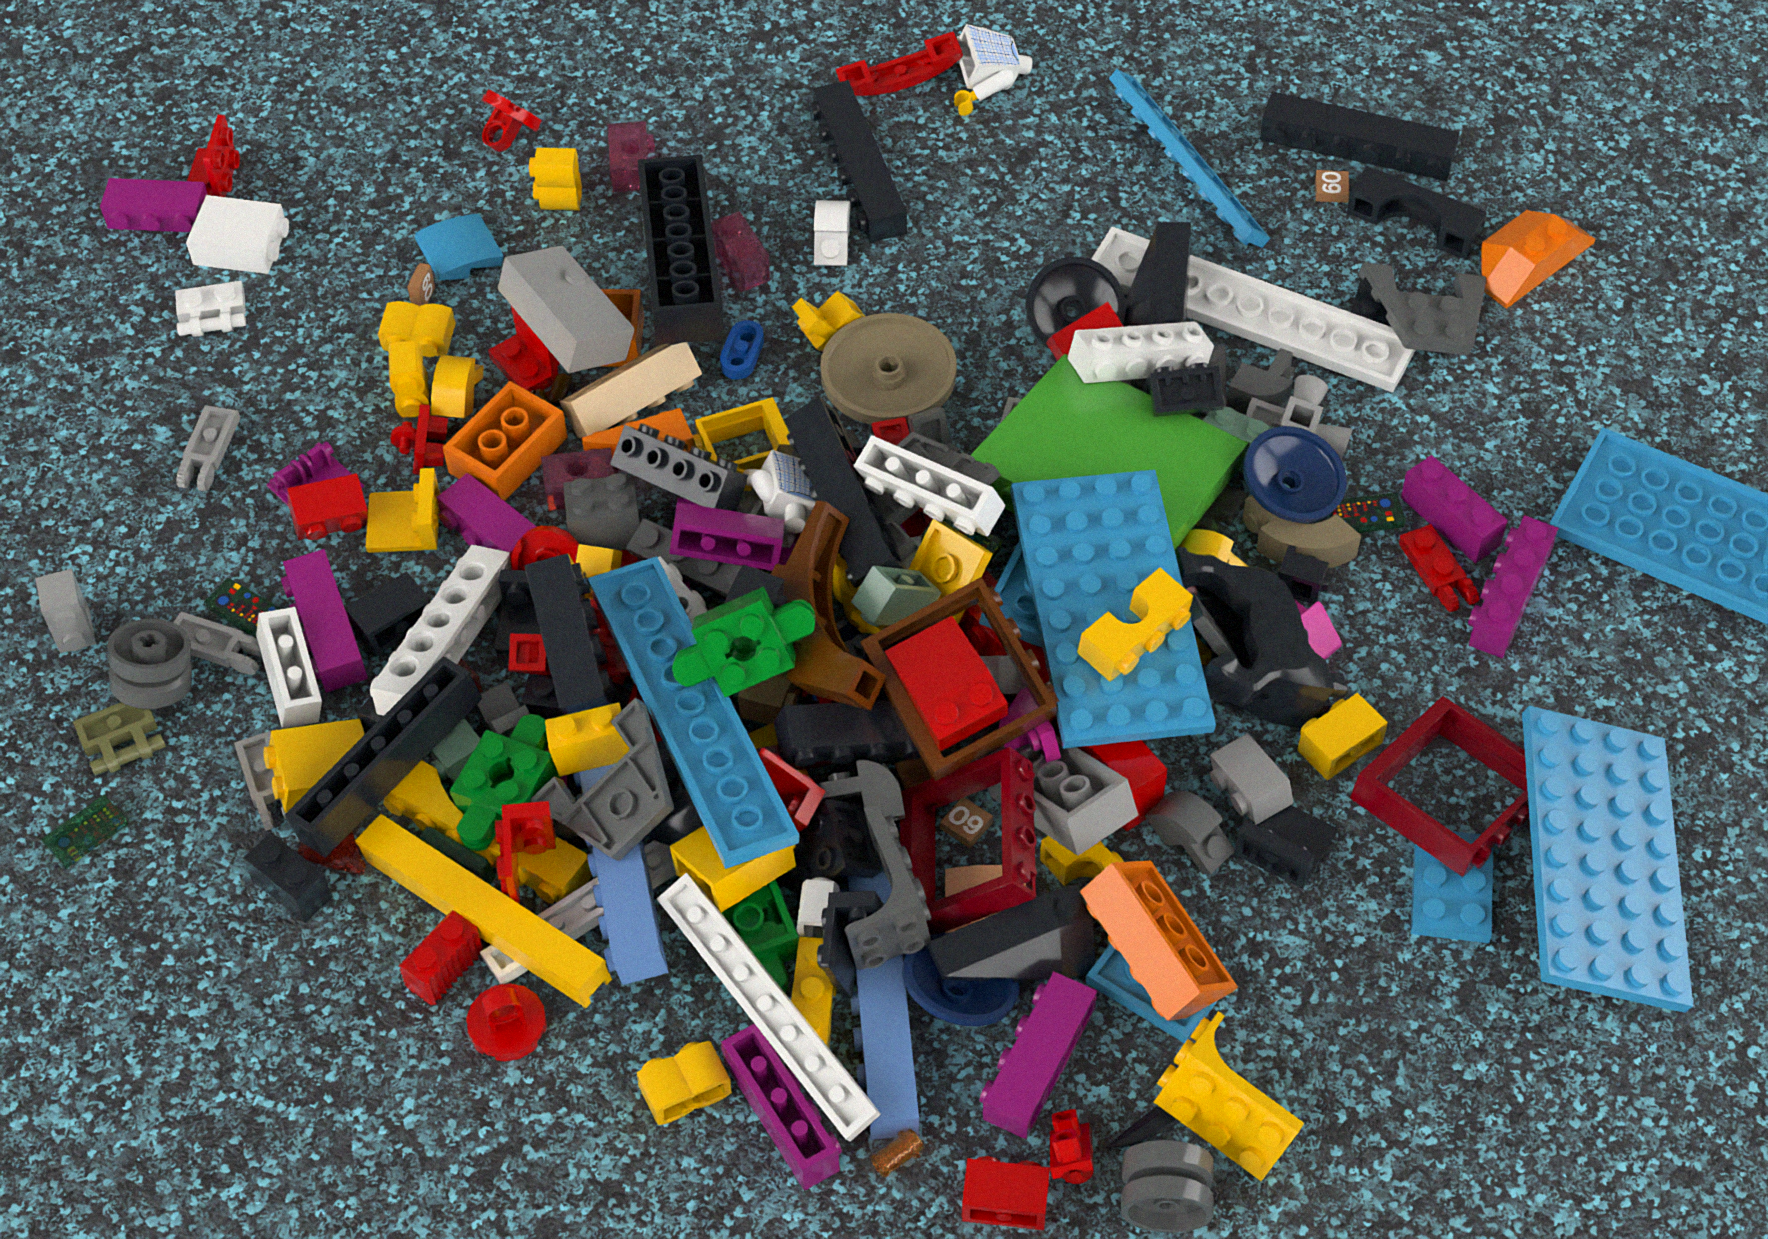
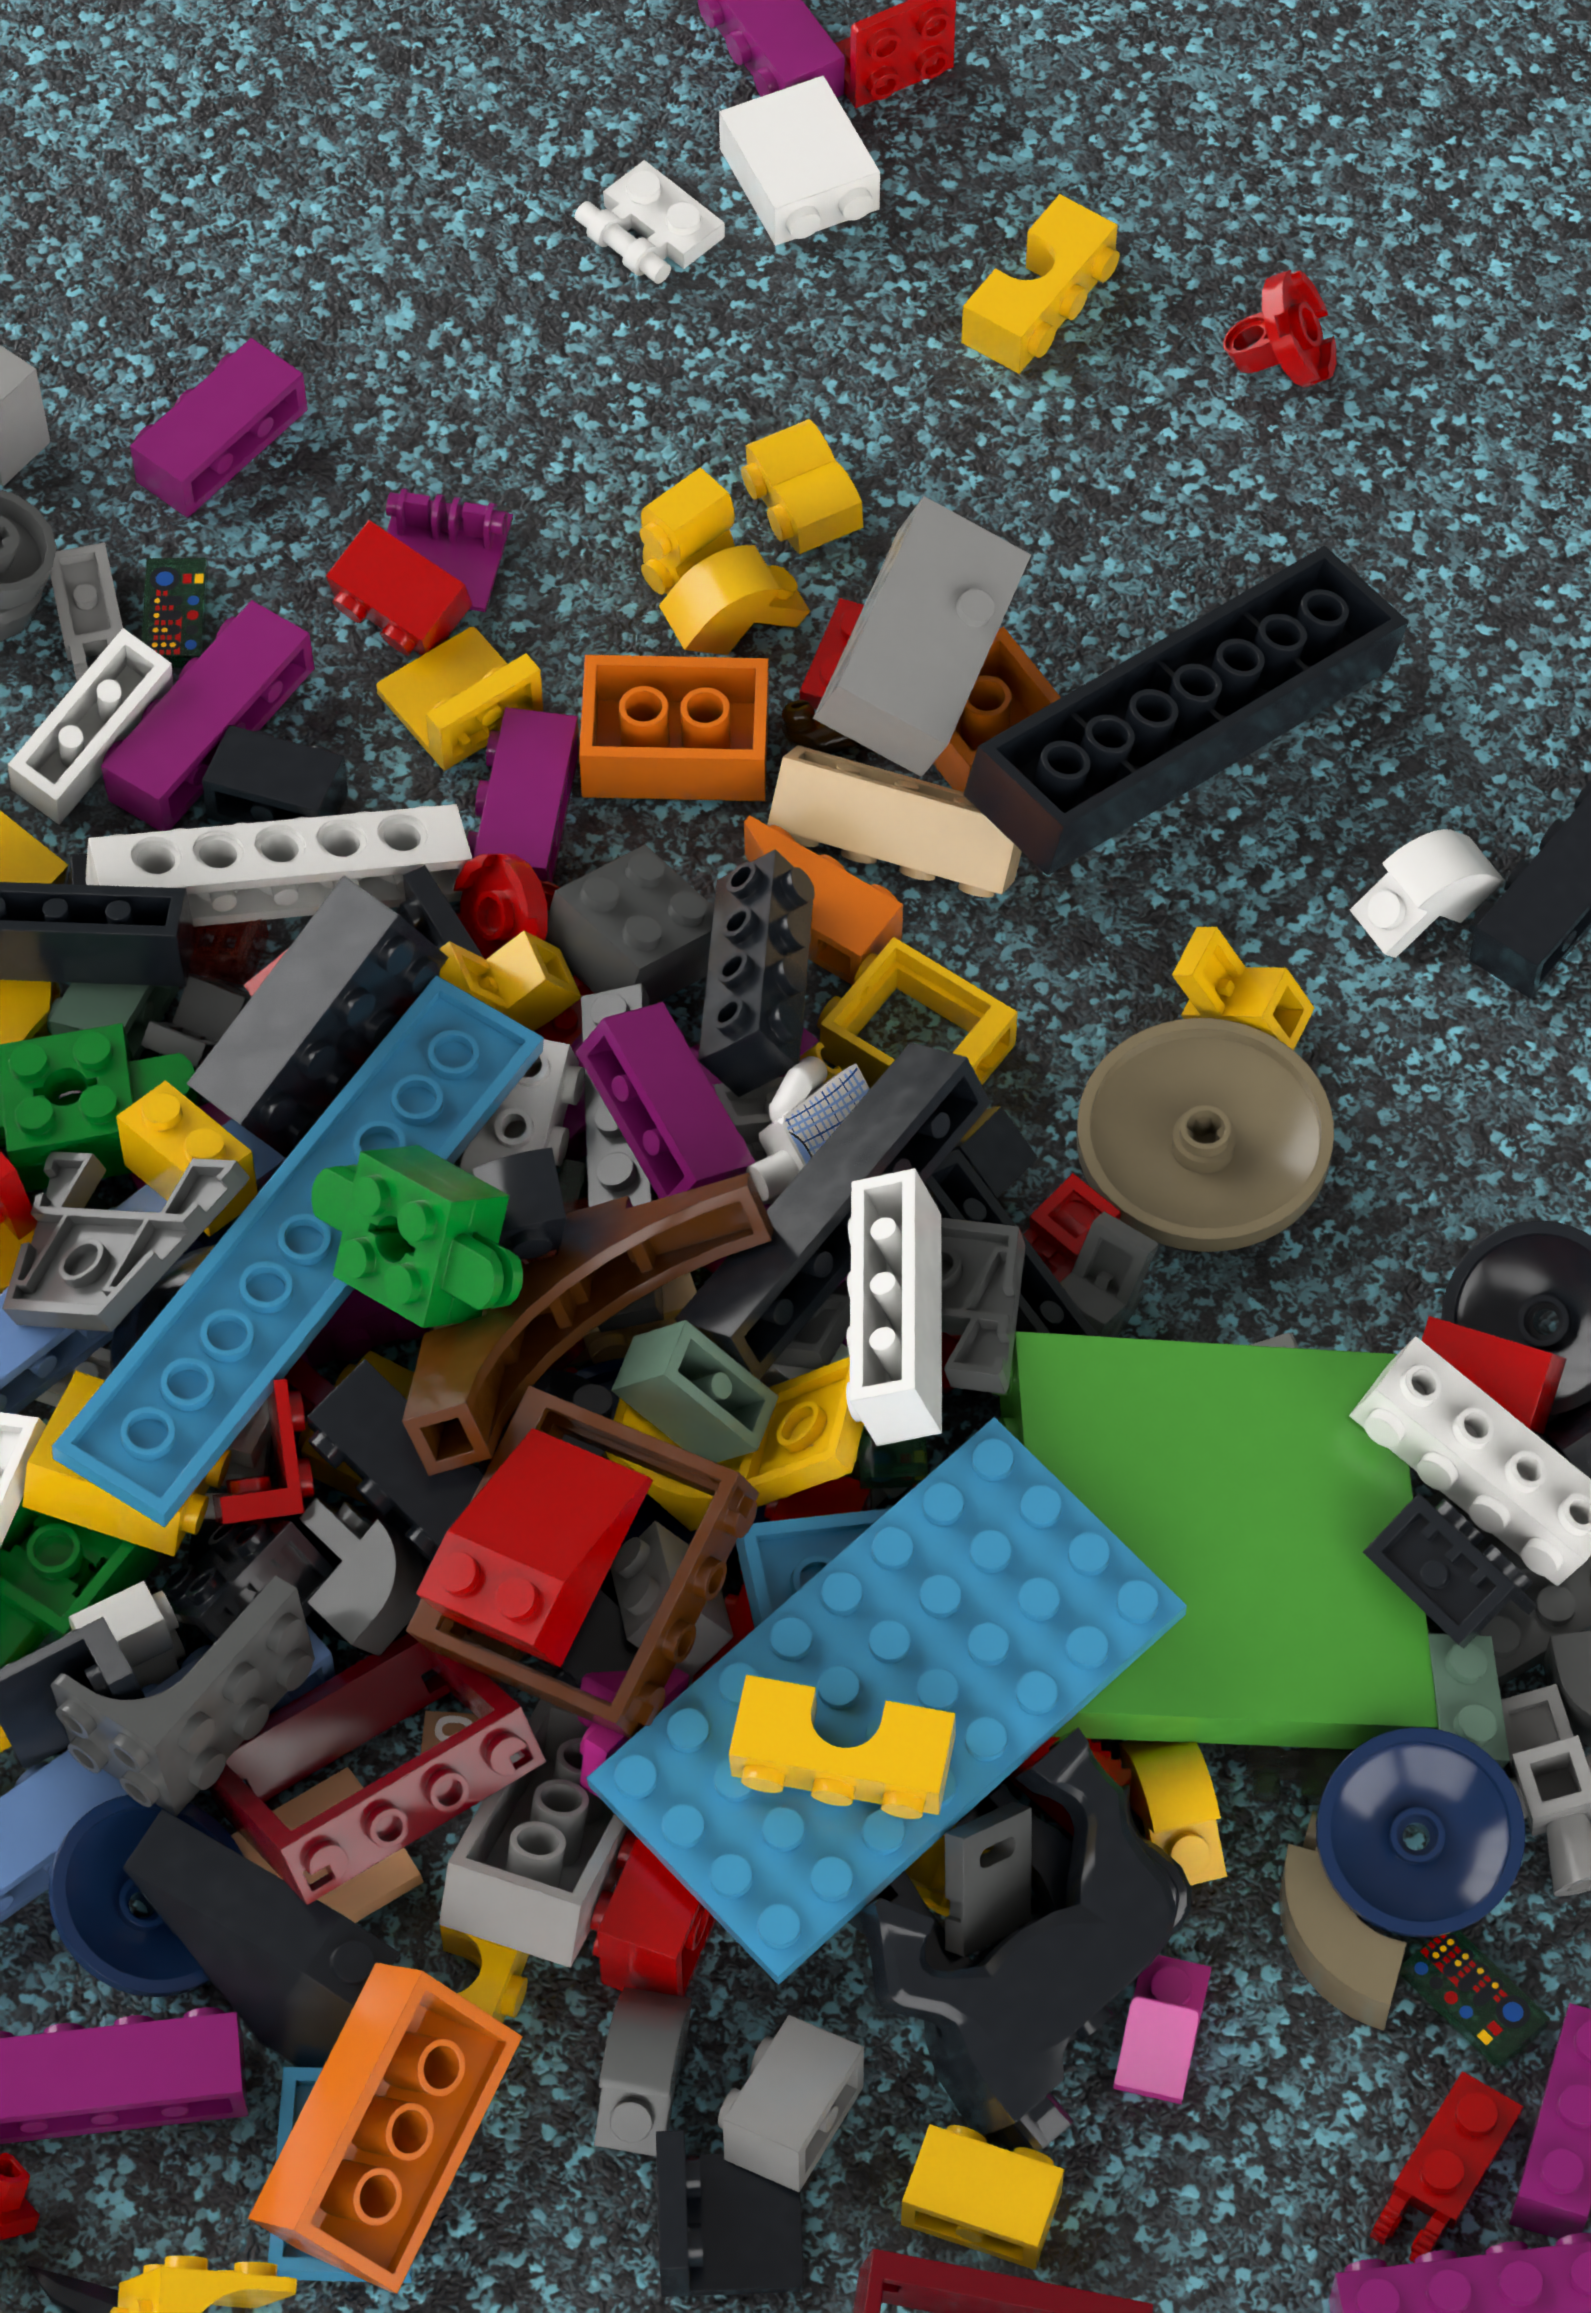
camera: 55 degrees right, 5 degrees up
(157, 532) = (218, 427): none -> magenta brick
(207, 446) = (405, 383): light grey hinge -> none
(396, 187) = (1019, 318): none -> yellow arch
(408, 438) = (608, 616): red hips -> none
(421, 284) = (885, 440): medium nougat tile -> none
(457, 246) = (1002, 437): dark azure slope -> none
(556, 178) = (1212, 471): yellow brick -> none
(572, 466) = (683, 831): clear pink brick -> none
(627, 145) = (1362, 523): clear pink brick -> none
(739, 356) = (1096, 917): blue plate -> none
(740, 251) = (1282, 795): clear pink brick -> none
(1305, 576) = (1260, 1965): black brick -> none

